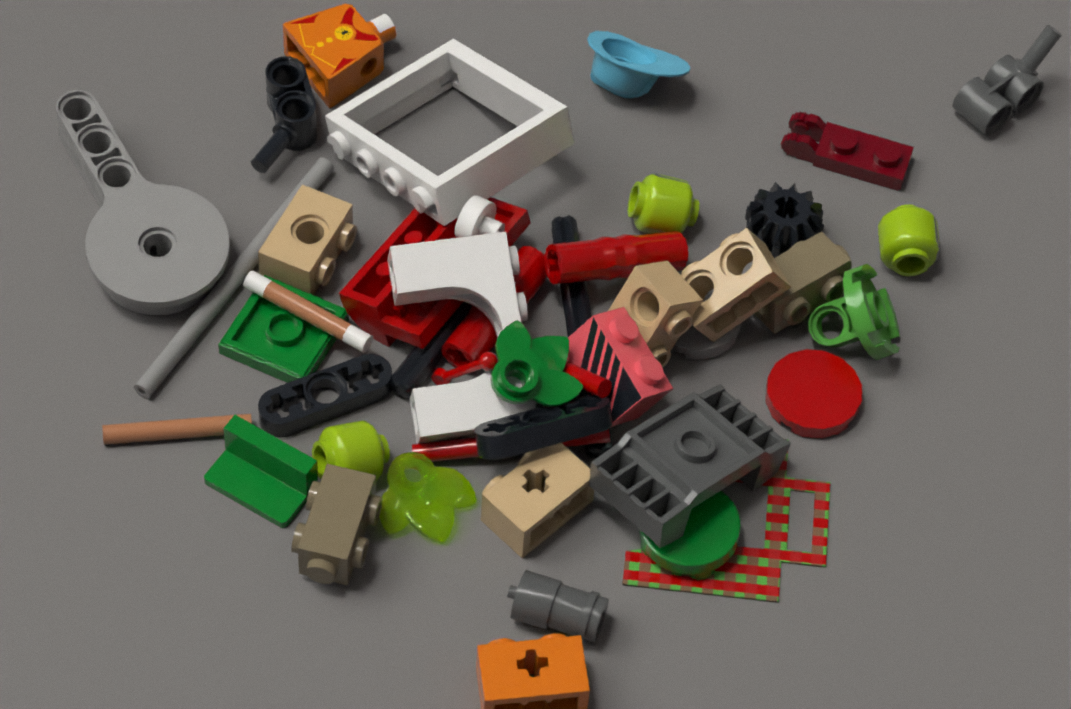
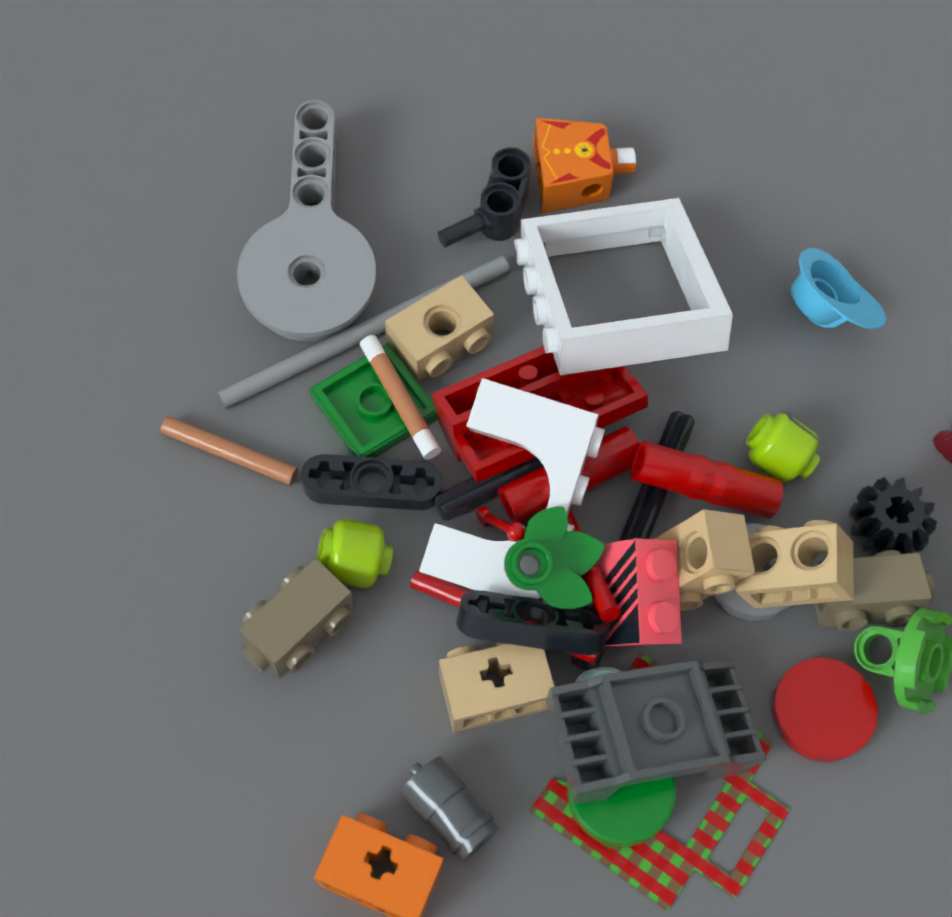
camera: 30 degrees right, 10 degrees up
(262, 472) = (268, 531): green panel -> none
(425, 503) = (396, 635): clear neon green plate -> none
(477, 218) = (590, 386): white tile -> none

